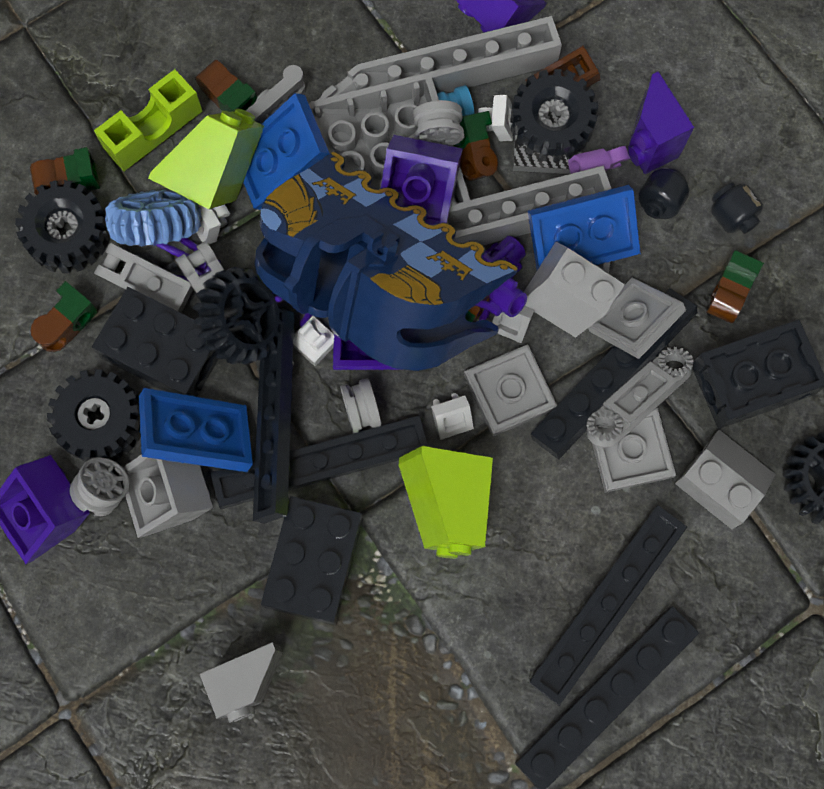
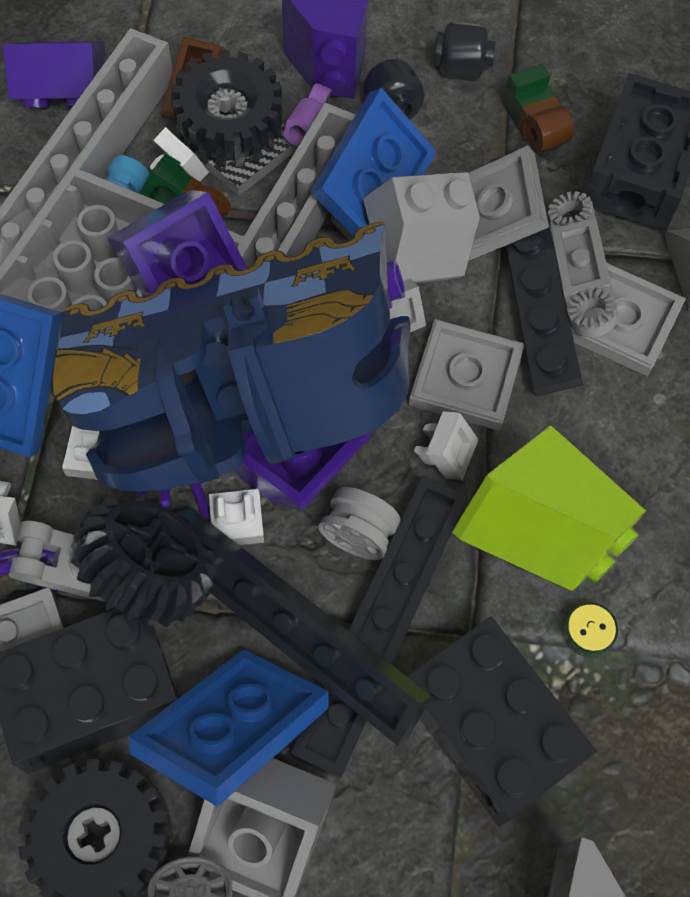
camera: 50 degrees left, 10 degrees down
(411, 574) = (590, 629): none -> light yellow tile
(439, 122) = (138, 187): light grey wheel -> none

